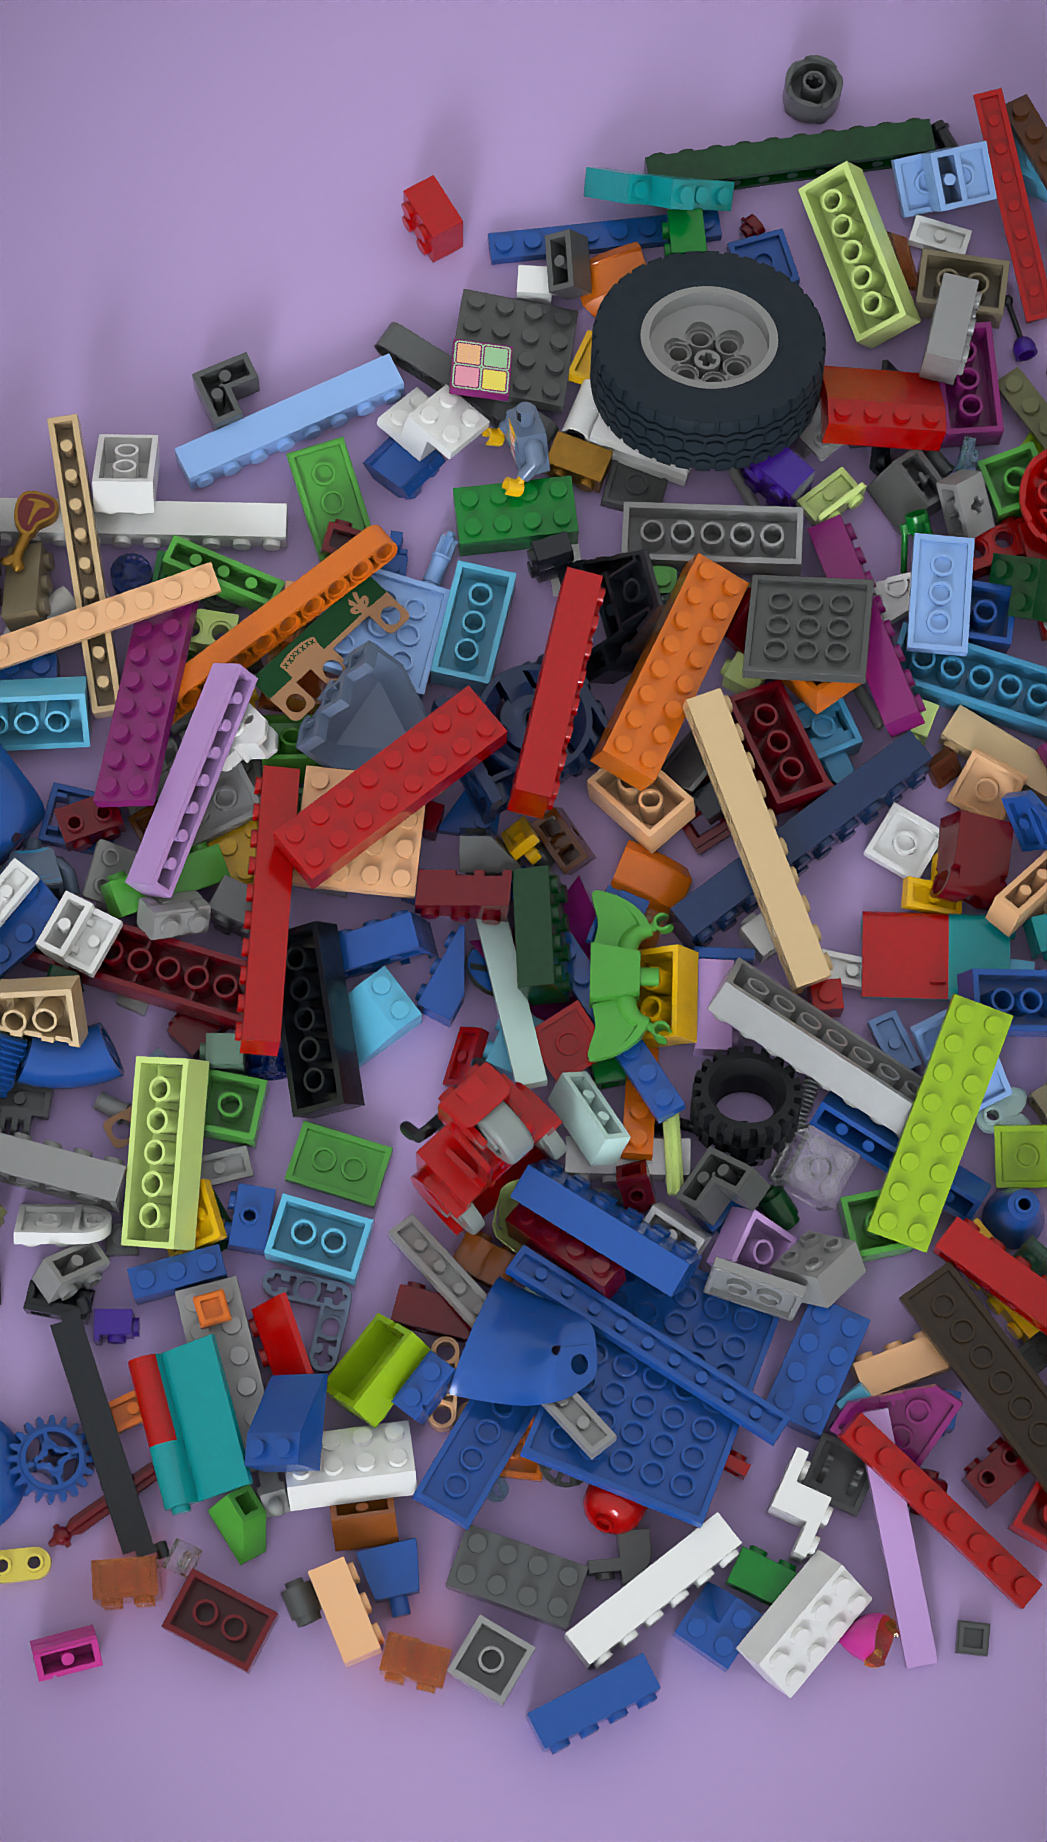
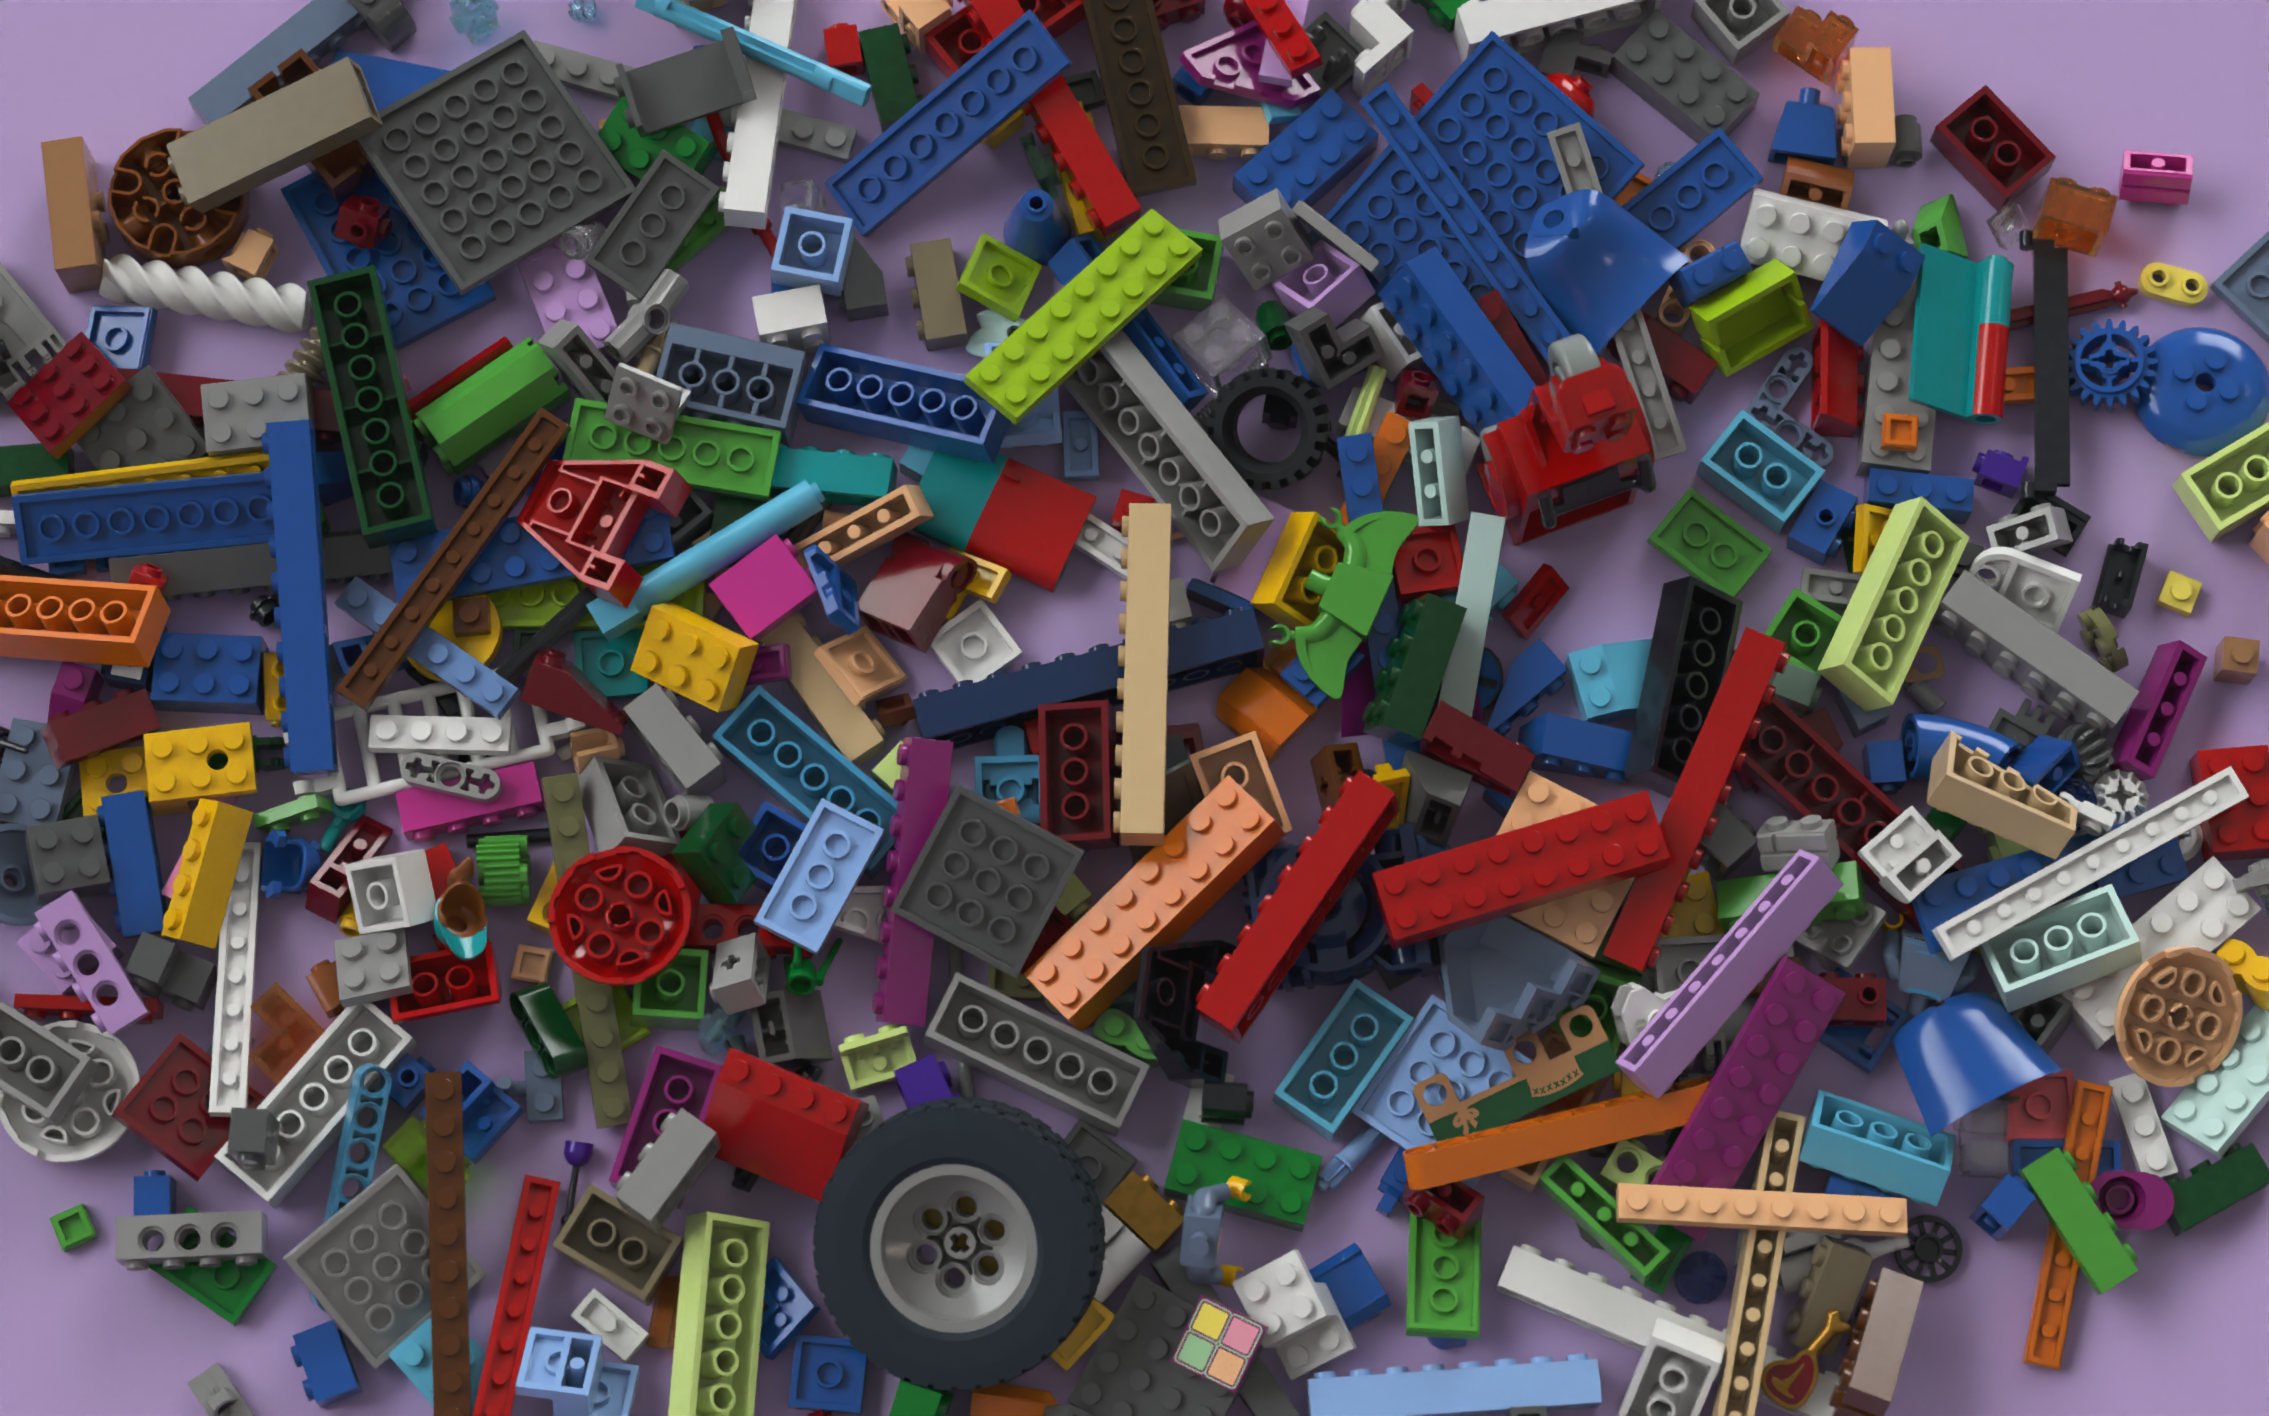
camera: 155 degrees left, 0 degrees up
(126, 1031) = (1885, 765): none -> blue brick
(816, 283) = (788, 1308): none -> blue plate

